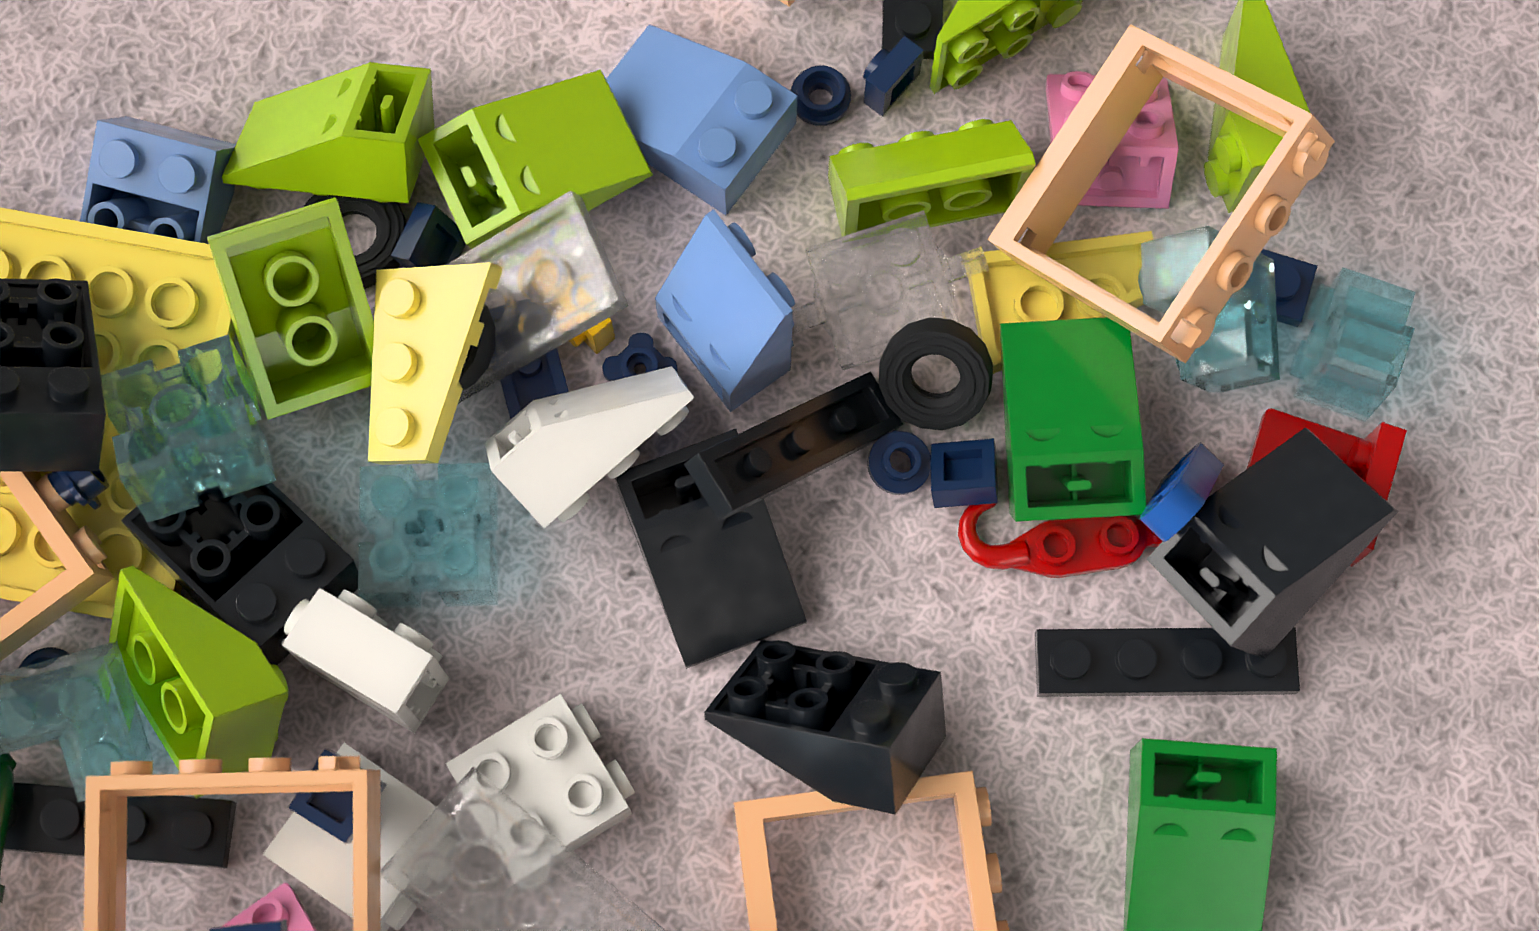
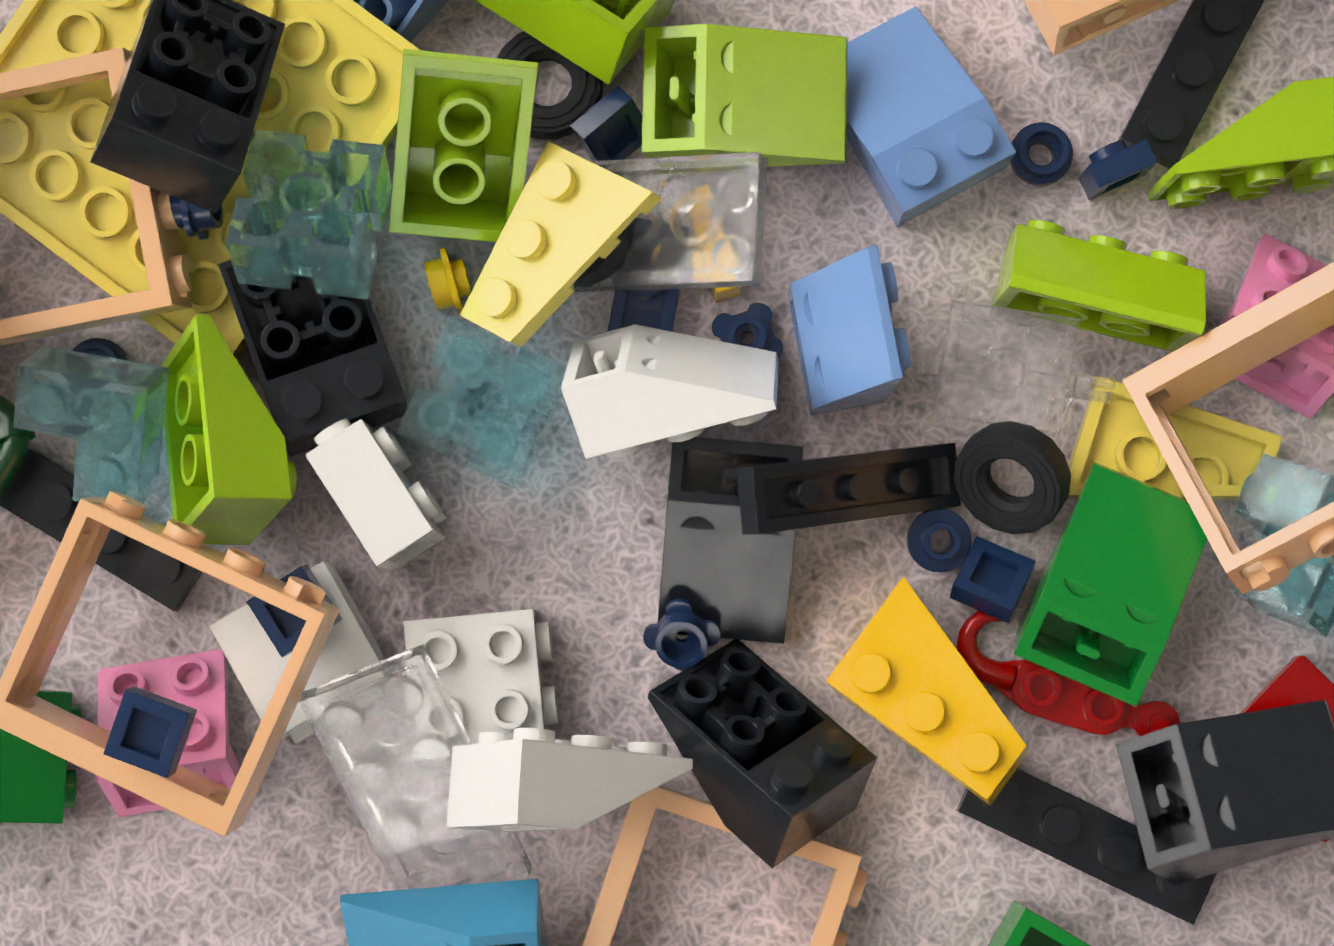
camera: 30 degrees right, 10 degrees up
(343, 444) = (448, 281): none -> yellow plate
(646, 830) = (548, 782): none -> white slope
(700, 639) = (676, 651): none -> dark blue plate
(960, 600) = (928, 697): none -> yellow wedge
(1182, 492) = (1179, 702): blue beam -> none

